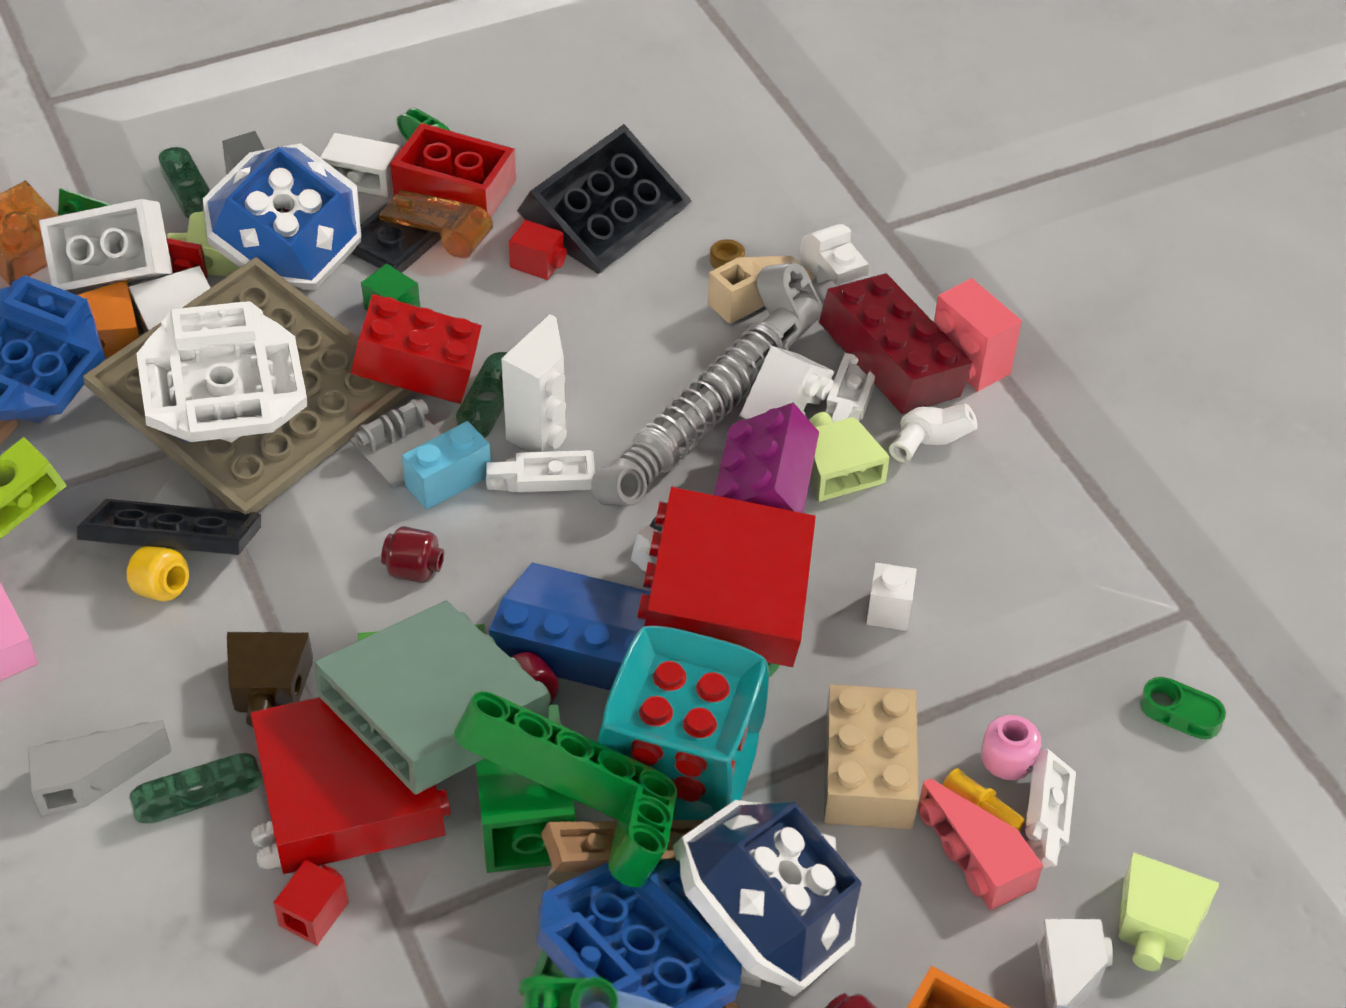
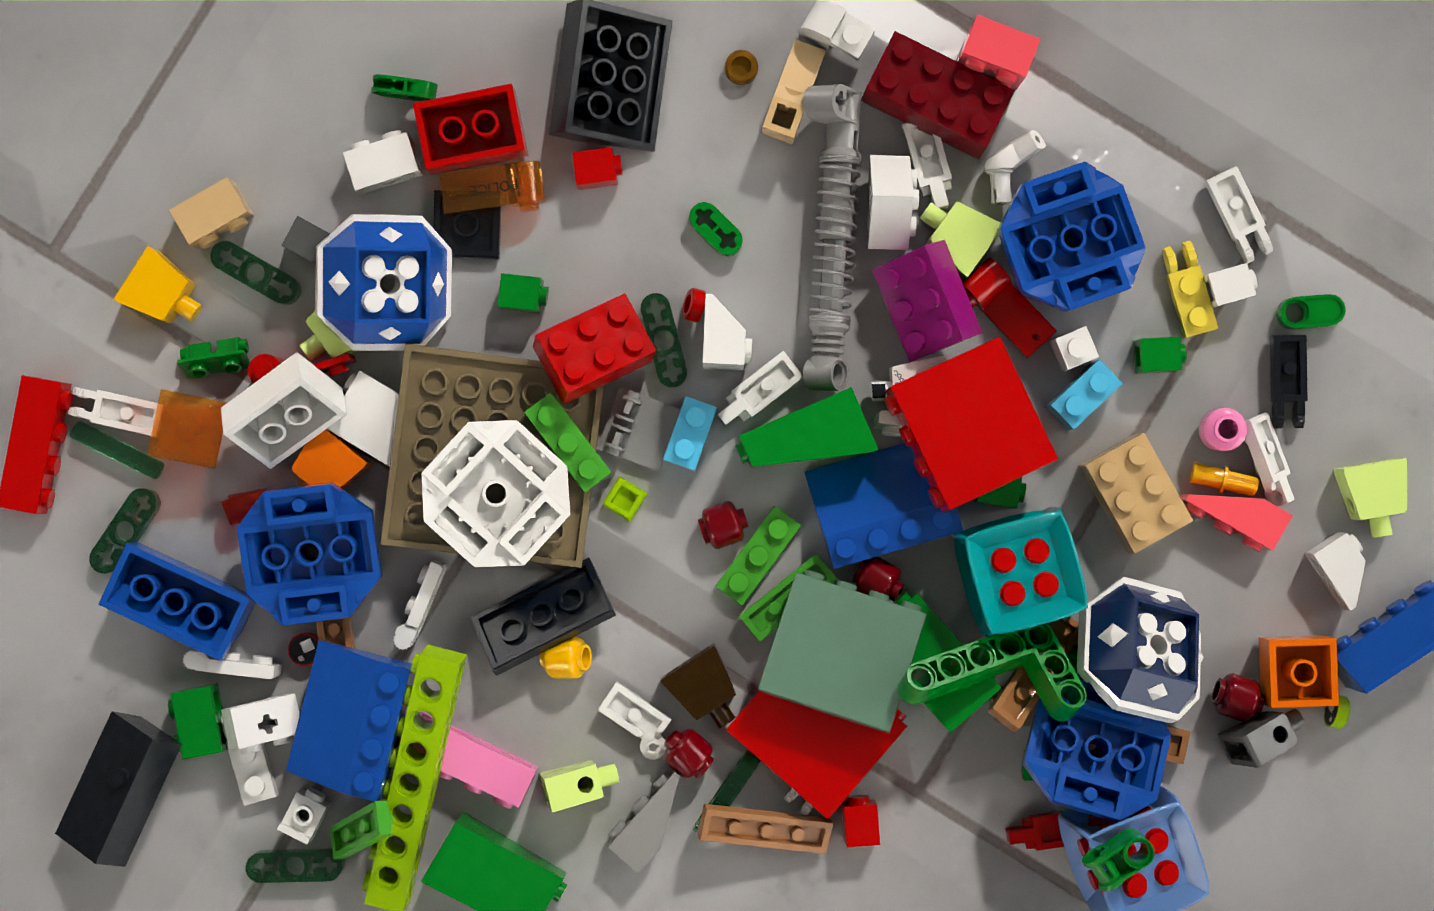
camera: 30 degrees left, 40 degrees up
(52, 676) = (562, 788): none -> yellowish green torso
(88, 454) = (419, 606): none -> white hinge
(97, 149) = (159, 289): none -> yellow torso
(175, 669) = (638, 718): none -> white hinge
(192, 126) = (212, 214): none -> tan brick
(192, 721) = (688, 753): none -> dark red head
(203, 833) = (764, 828): none -> medium nougat plate
(326, 406) = (567, 442): none -> bright green plate
(339, 491) = (624, 498): none -> lime tile
(462, 590) = (758, 555): none -> bright green plate
(557, 512) = (815, 432): none -> green slope
(601, 345) = (721, 223): none -> green beam
(843, 530) = (1007, 308): none -> red door
(873, 639) = (1083, 395): none -> medium azure brick
(952, 490) = (1104, 231): none -> blue piece
(982, 651) = (1159, 355): none -> green brick
(1052, 626) = (1189, 292): none -> light yellow hinge
(1101, 632) = (1231, 285): none -> white brick
(1120, 749) = (1288, 377): none -> black hinge
(1150, 581) = (1238, 212): none -> white hinge

